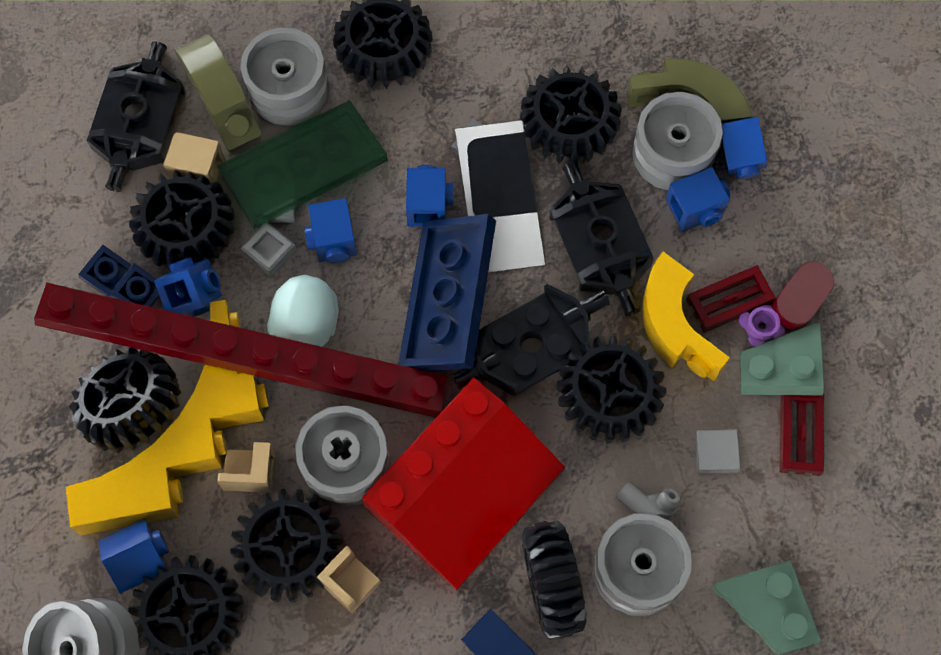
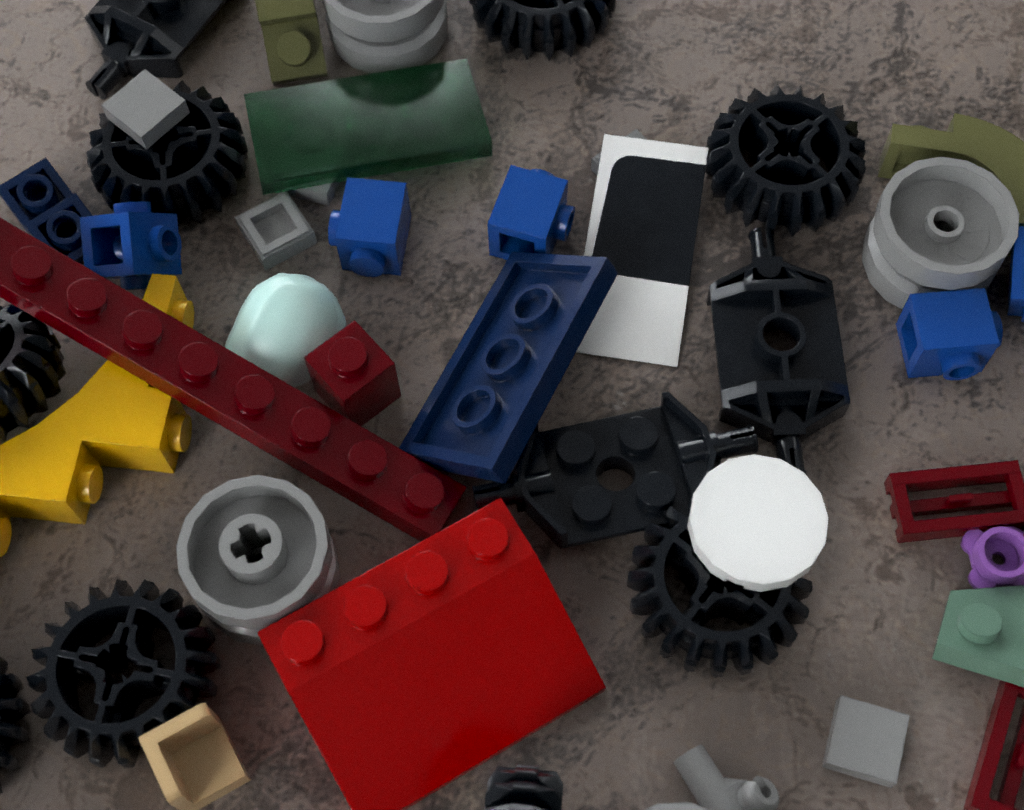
camera: 20 degrees right, 5 degrees down
(163, 196) = (145, 109): none -> light grey tile
(194, 155) = (218, 72): tan panel -> none
(249, 469) = (118, 538): tan panel -> none
(356, 328) = (353, 374): none -> dark red brick
(624, 347) = (757, 522): none -> white tile
(667, 325) = (852, 458): yellow arch -> none

